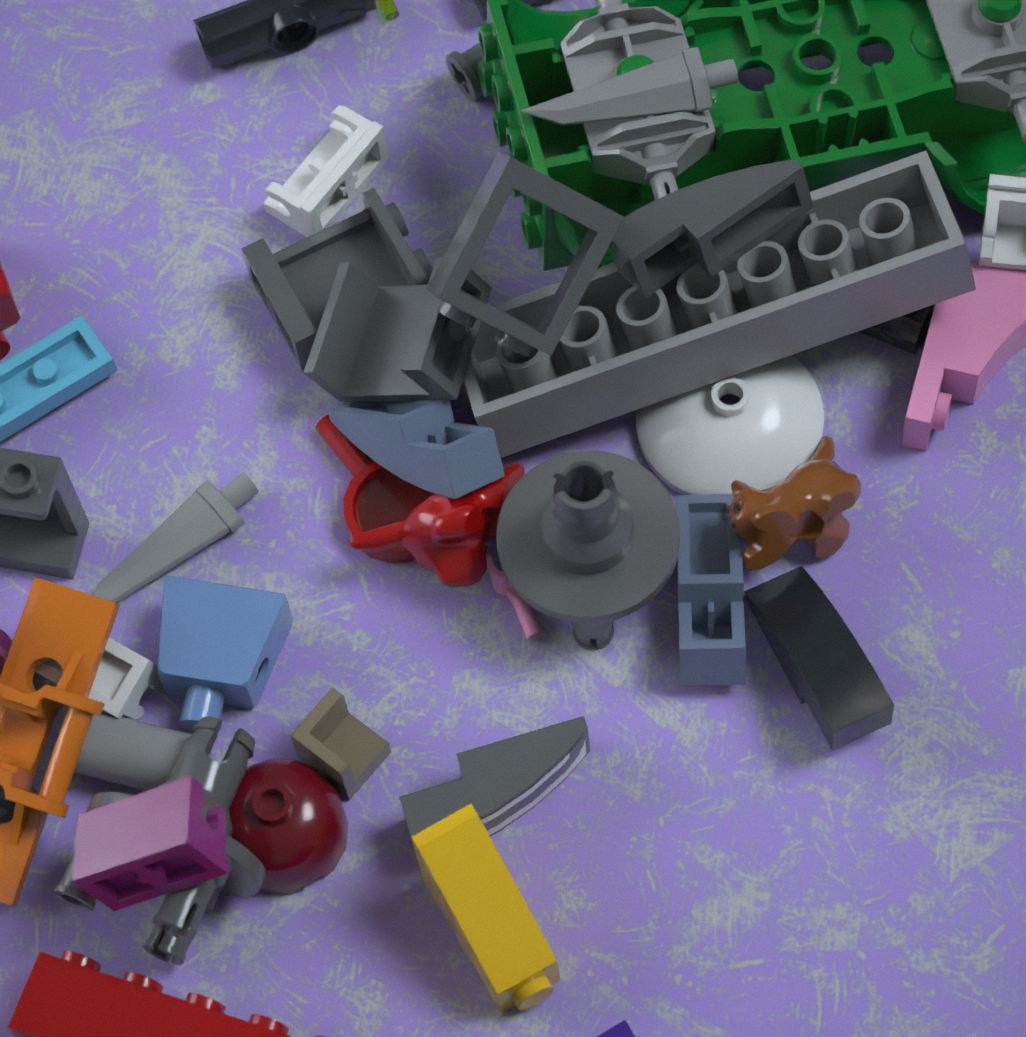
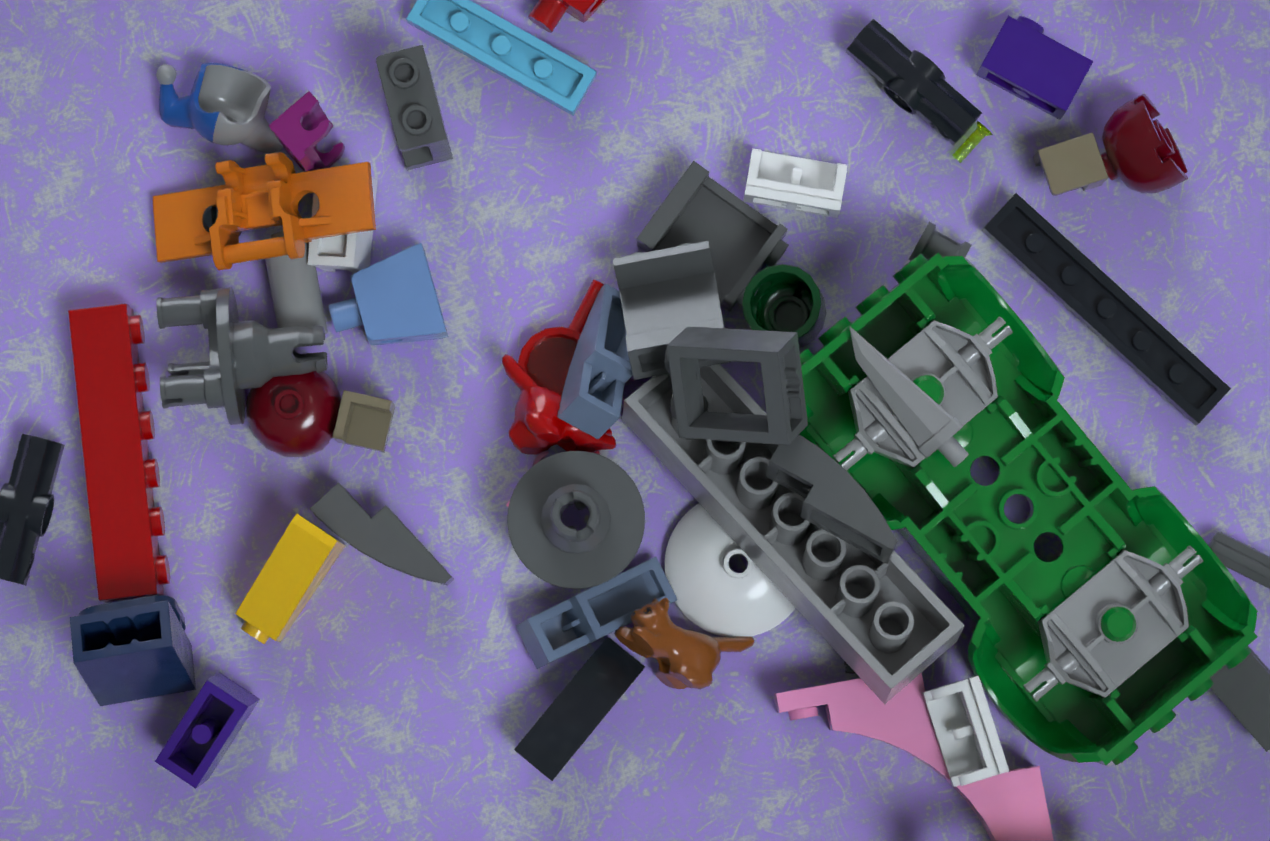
camera: 55 degrees right, 20 degrees up
(149, 845) = (199, 353): magenta hinge -> none
(188, 530) = (476, 232): light grey bar -> none
(440, 203) = (785, 303): none -> dark green piece

